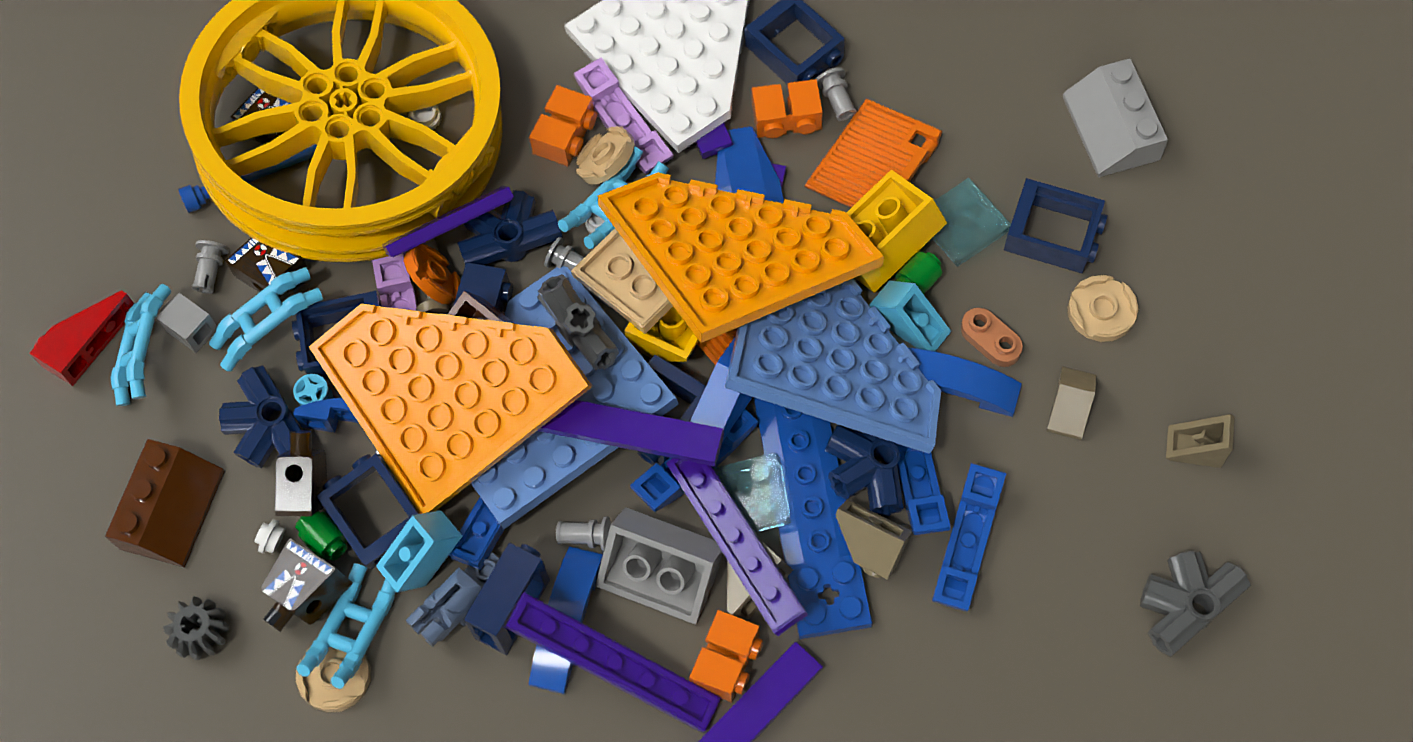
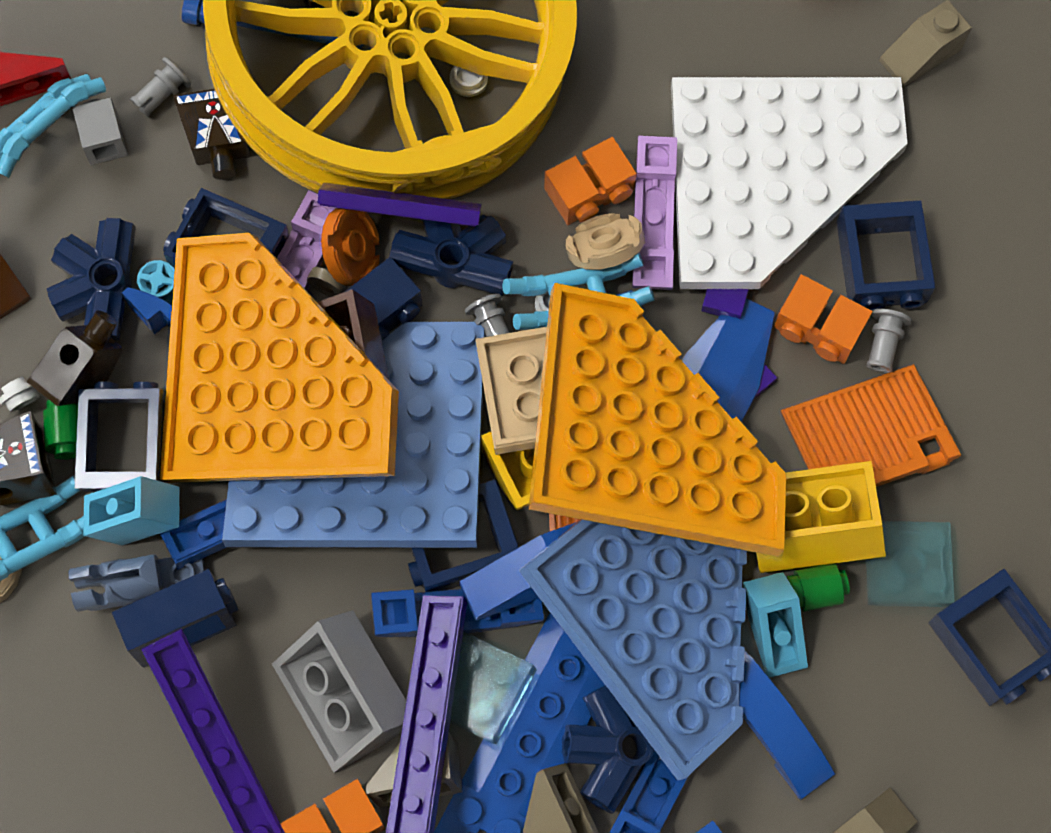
camera: 30 degrees right, 5 degrees up
(280, 312) = (183, 183): medium azure piece -> none
(570, 596) = (229, 666): blue slope -> none
(577, 322) = (439, 396): dark grey piece -> none
(584, 533) = (303, 610): light grey pin -> none
(638, 432) = (412, 551): dark purple tile -> none
(988, 337) = (842, 702): nougat plate -> none
(1102, 308) = (980, 758): tan tile -> none

